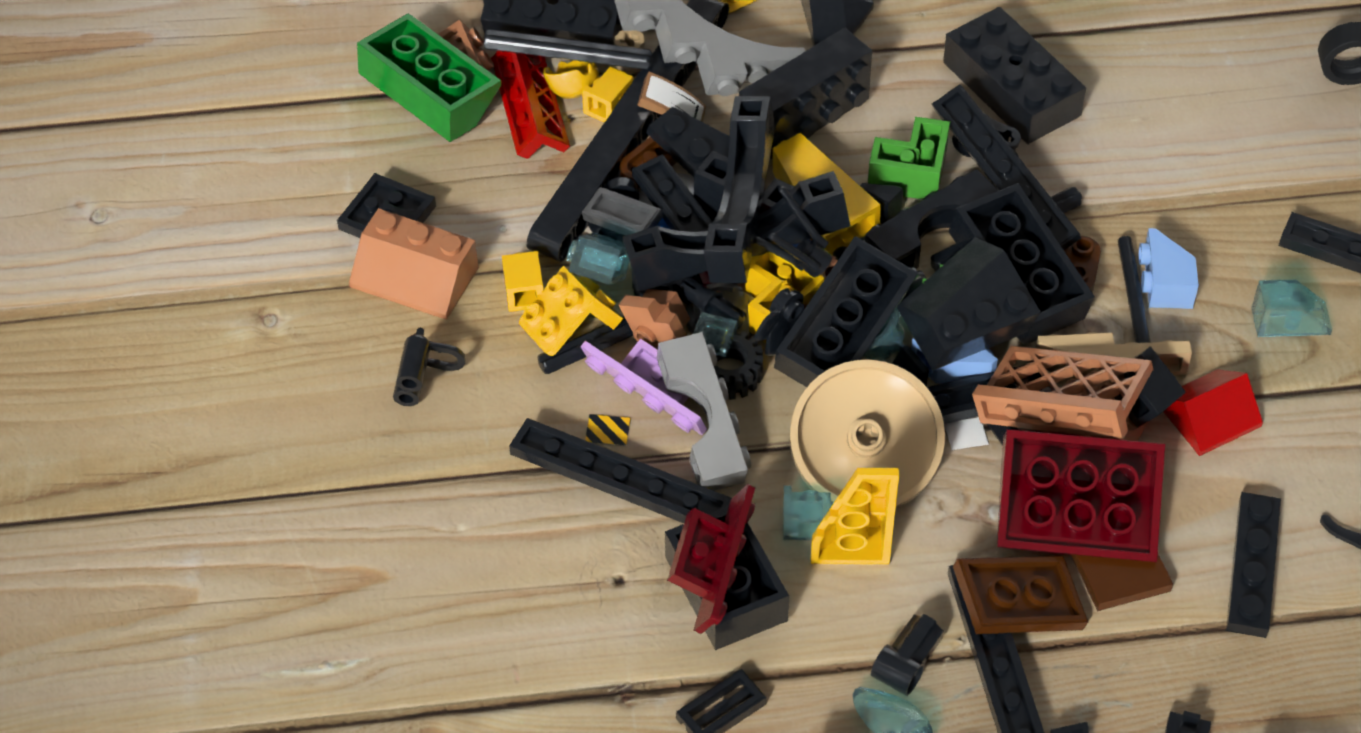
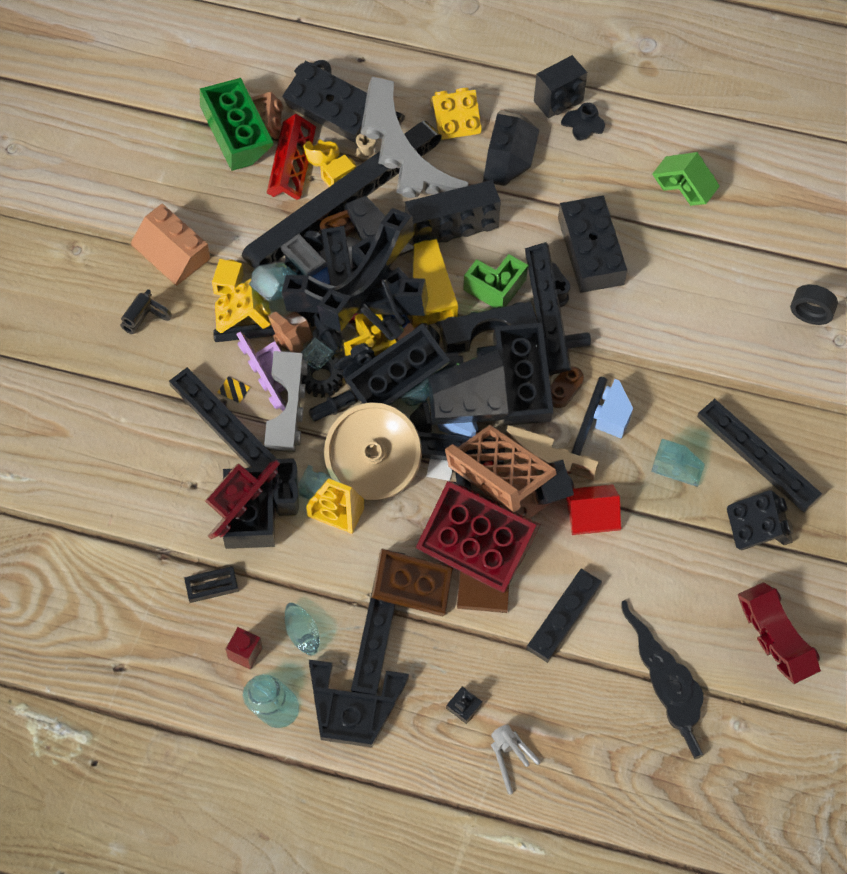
camera: 20 degrees right, 10 degrees up
(386, 195) = (174, 196): black plate -> none
(568, 49) = (323, 134): black axle -> none
(661, 94) = (366, 185): white slope -> none
(768, 399) = (332, 406): none -> black axle
(773, 528) = (286, 488): none -> black brick
(888, 196) = (466, 301): black slope -> none
(904, 661) = (324, 597): black piece -> none

